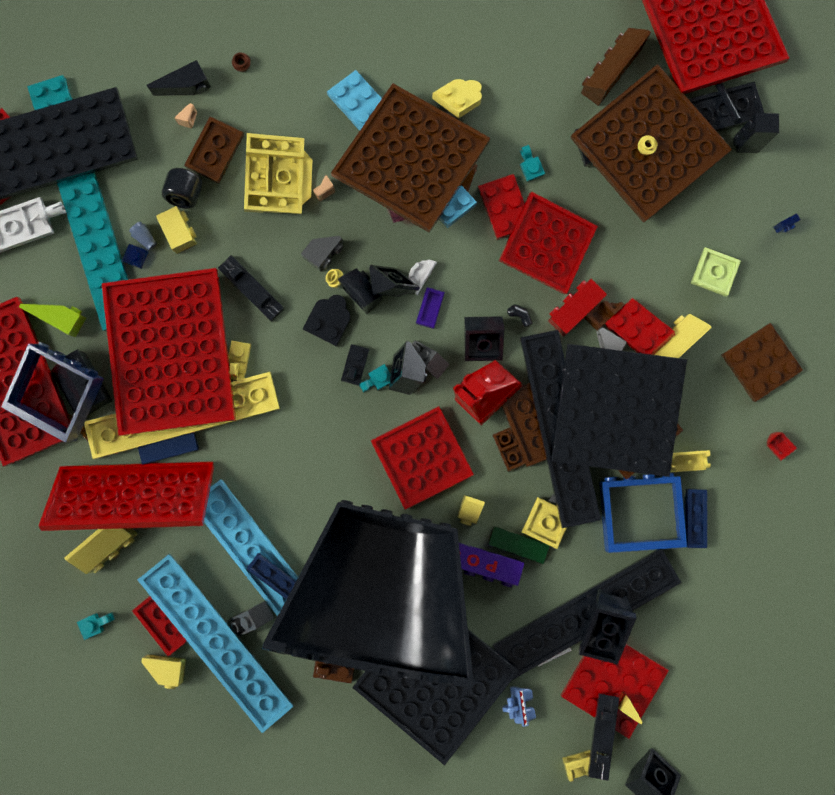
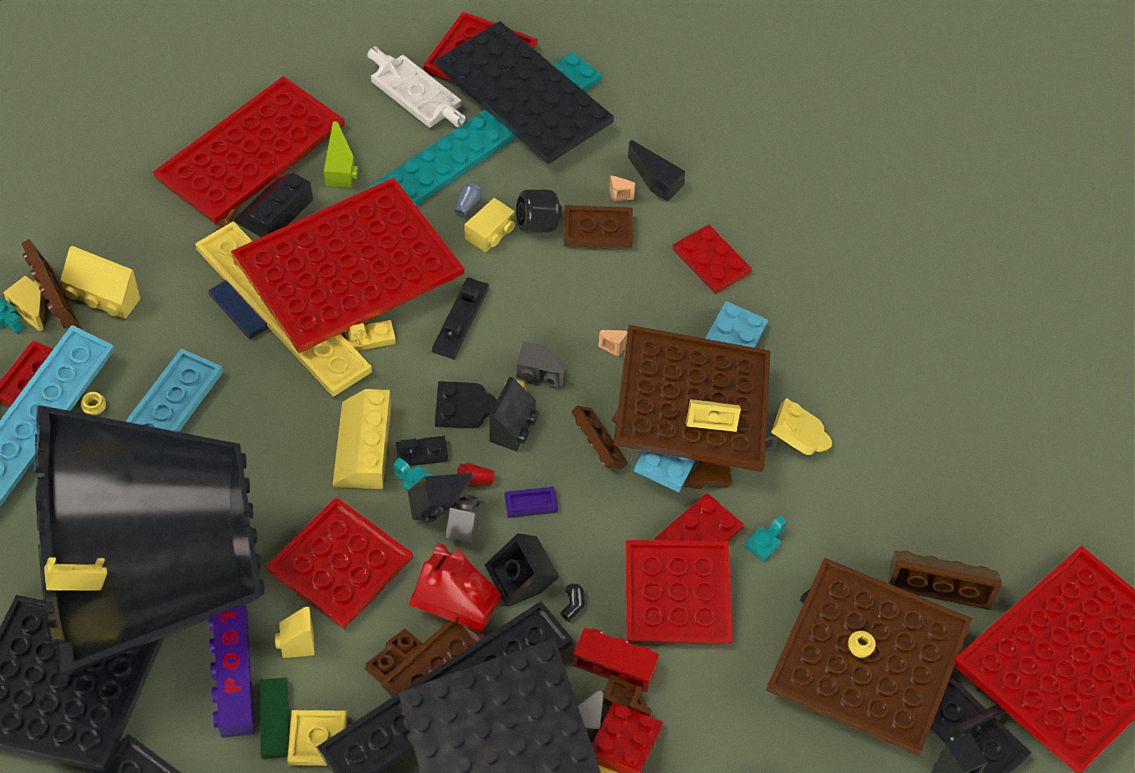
camera: 60 degrees right, 30 degrees down
(22, 378) = (251, 148): dark blue window -> none
(88, 583) = (49, 286): none -> reddish brown plate
(90, 602) = (28, 301): none -> light yellow slope
(128, 496) = (166, 283): red plate -> none
(135, 256) = (441, 202): clear blue plate -> none
(203, 583) = (90, 399): none -> light yellow plate
(241, 57) = (710, 214): copper plate -> none
(276, 174) = (603, 290): light yellow slope -> none
(280, 81) = (712, 259): none -> red plate
(329, 403) = (363, 440): none -> light yellow slope
(333, 672) = (29, 570): reddish brown hinge -> none
(366, 646) = (74, 576): none -> light yellow hinge
(390, 282) = (537, 439): black slope -> none
(393, 338) = (481, 475): none -> red cone
(401, 238) = (598, 437): none -> reddish brown plate
(420, 272) = (565, 473): white plate -> none
(441, 149) = (713, 415): none -> light yellow hinge

